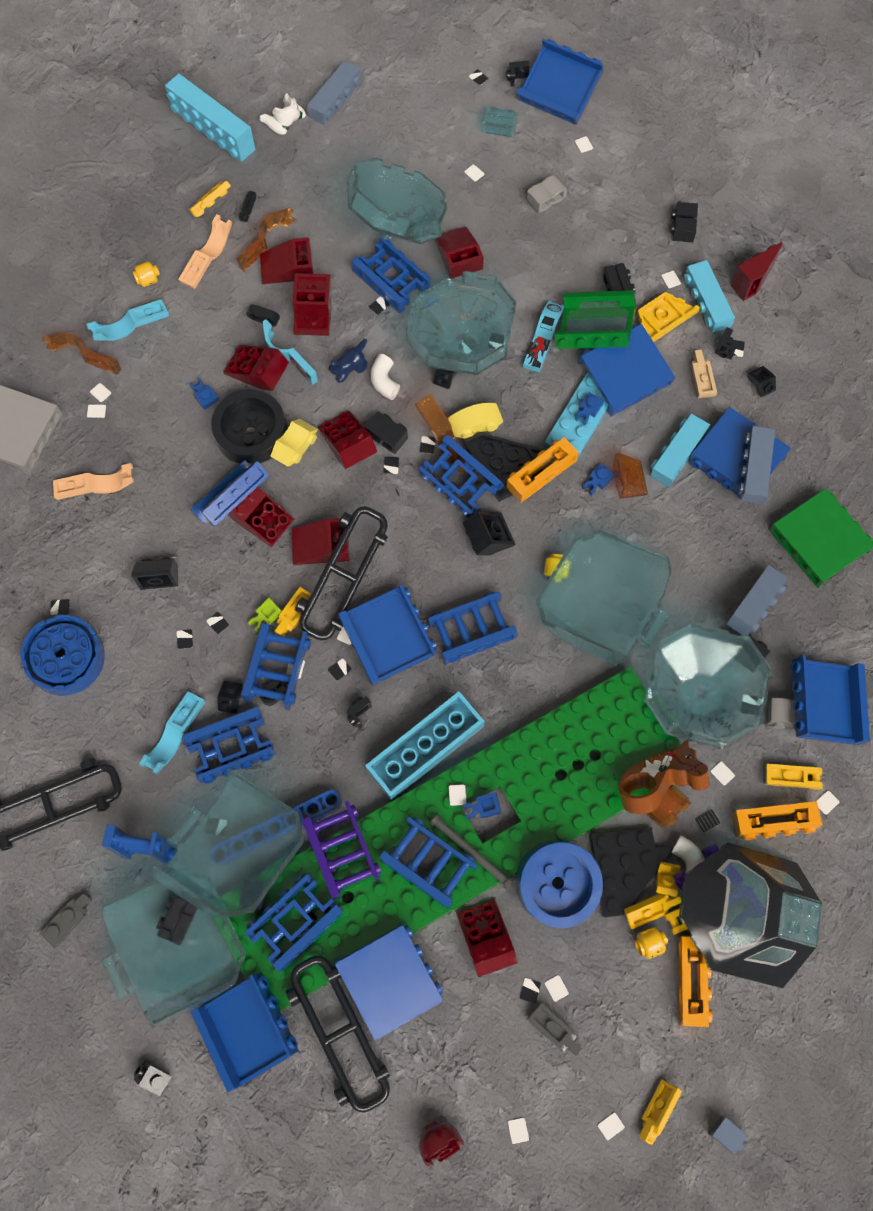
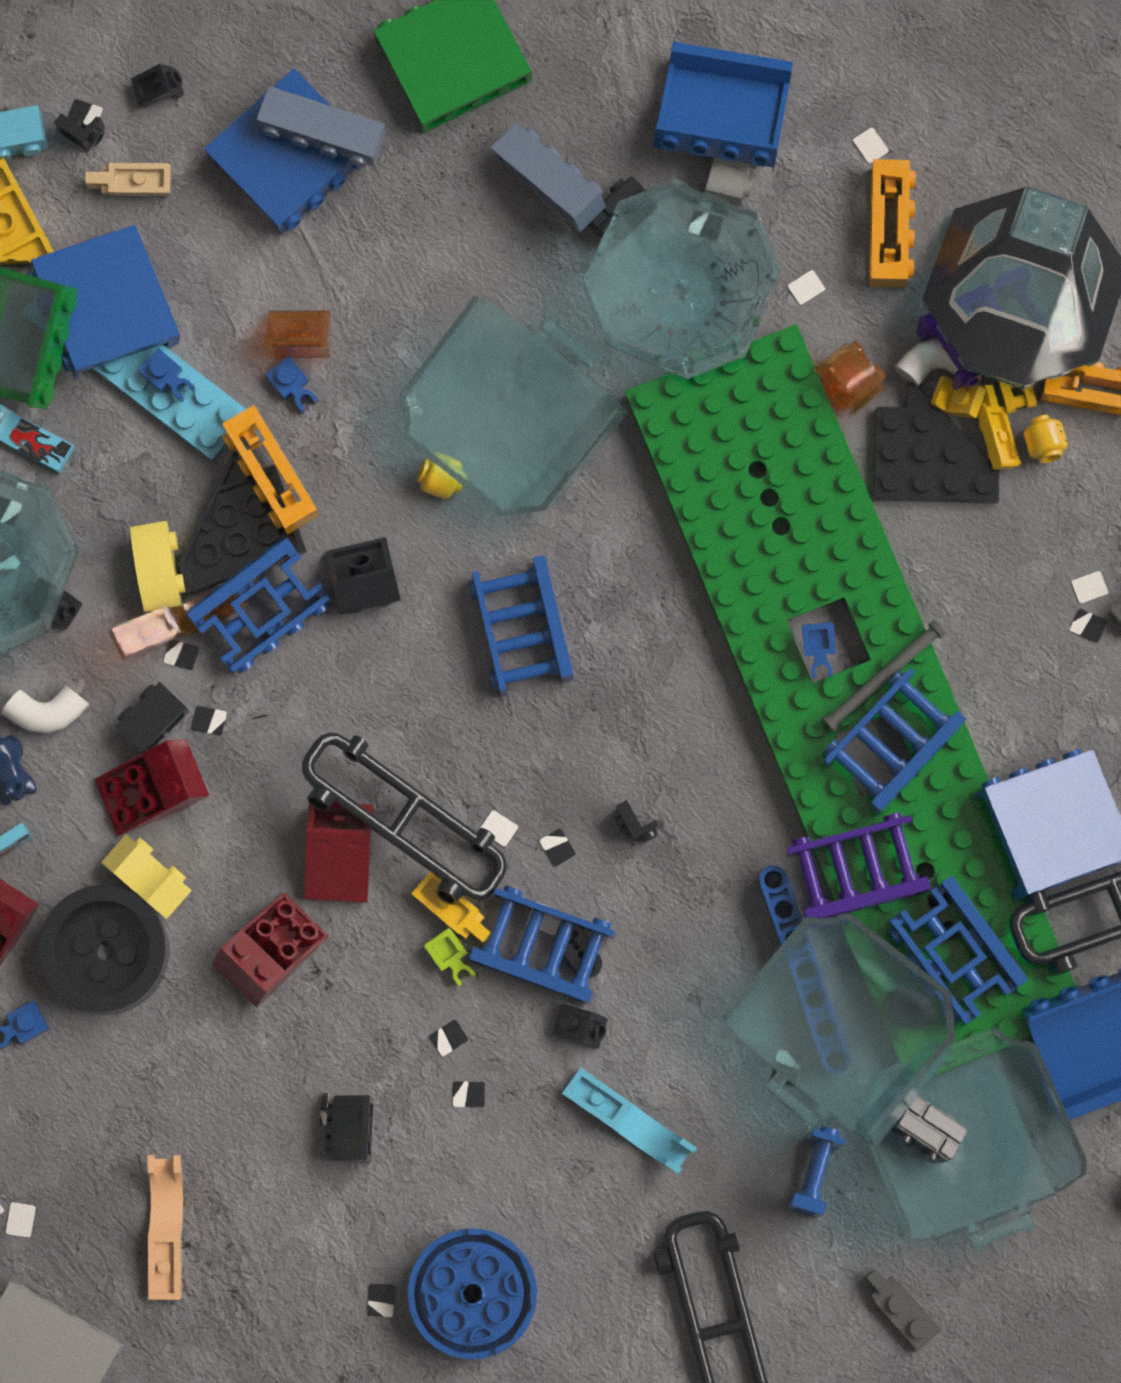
camera: 80 degrees left, 10 degrees up
(222, 731) = (639, 1038): blue fence -> none
(229, 492) = (245, 979): fence -> none
(388, 634) = (515, 760): blue panel -> none
(425, 746) = (708, 725): medium azure brick -> none
(457, 795) = (793, 685): white sticker -> none
(487, 938) = (1007, 675): dark red slope -> none
(574, 898) = (972, 541): blue brick -> none
(659, 772) = (804, 379): dark orange animal -> none
(679, 450) = (264, 244): medium azure brick -> none
(707, 820) = (875, 324): black sticker -> none
(793, 776) = (827, 186): yellow plate -> none

